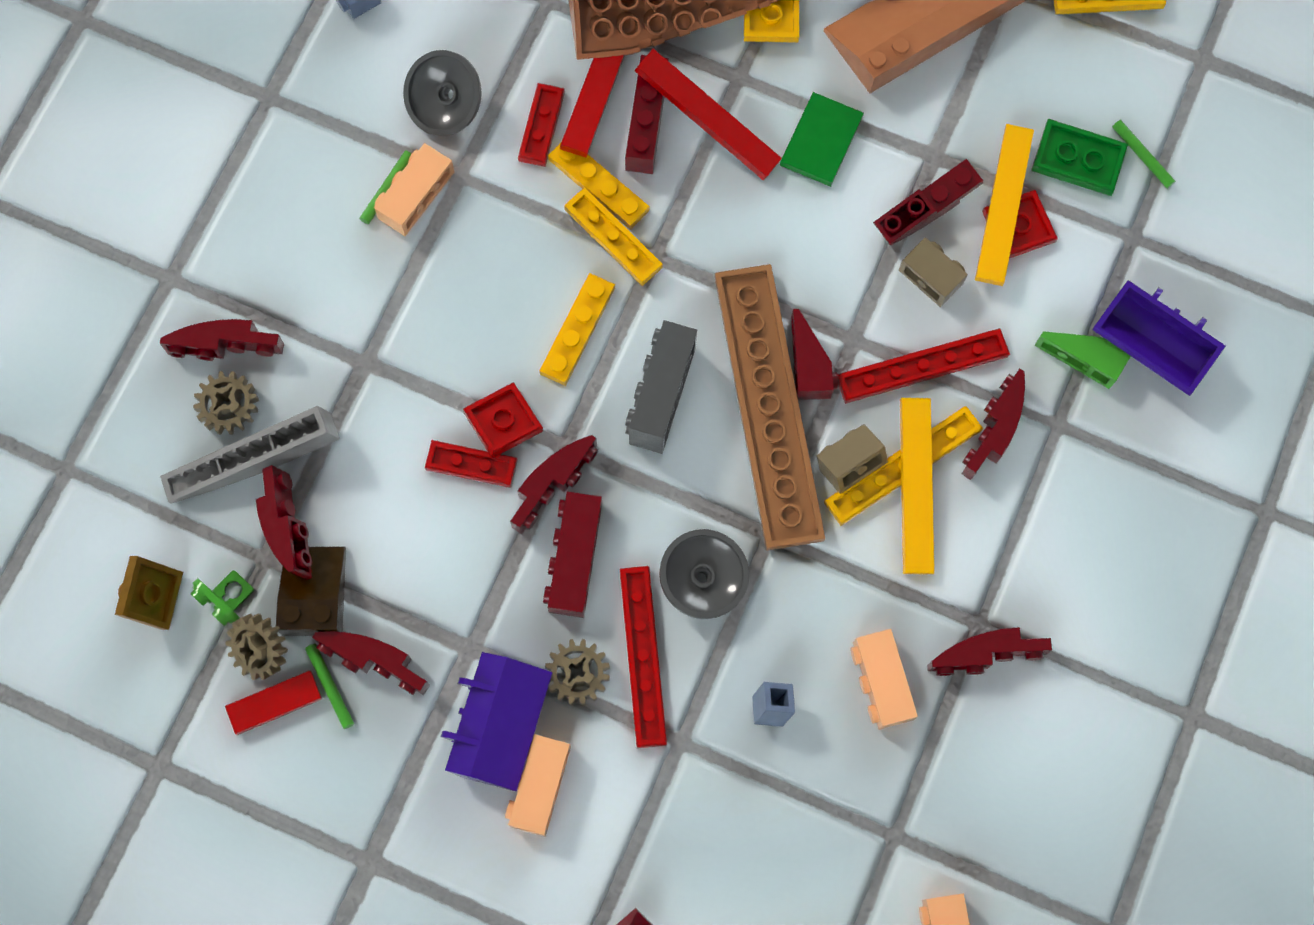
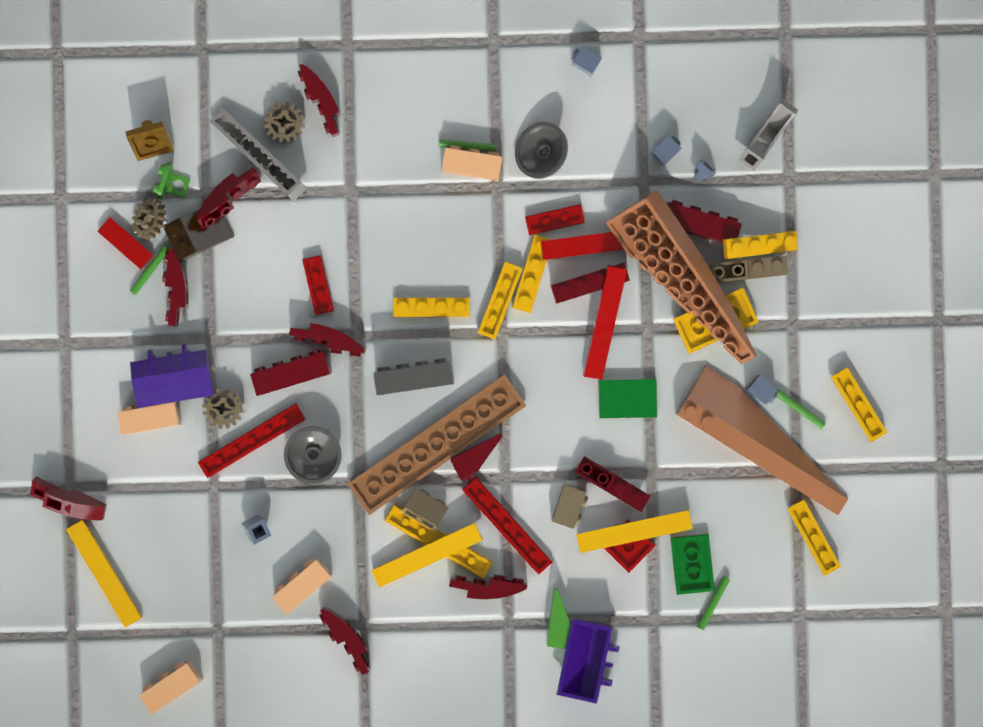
camera: 65 degrees right, 15 degrees up
(502, 420) = (352, 291): red tile -> none

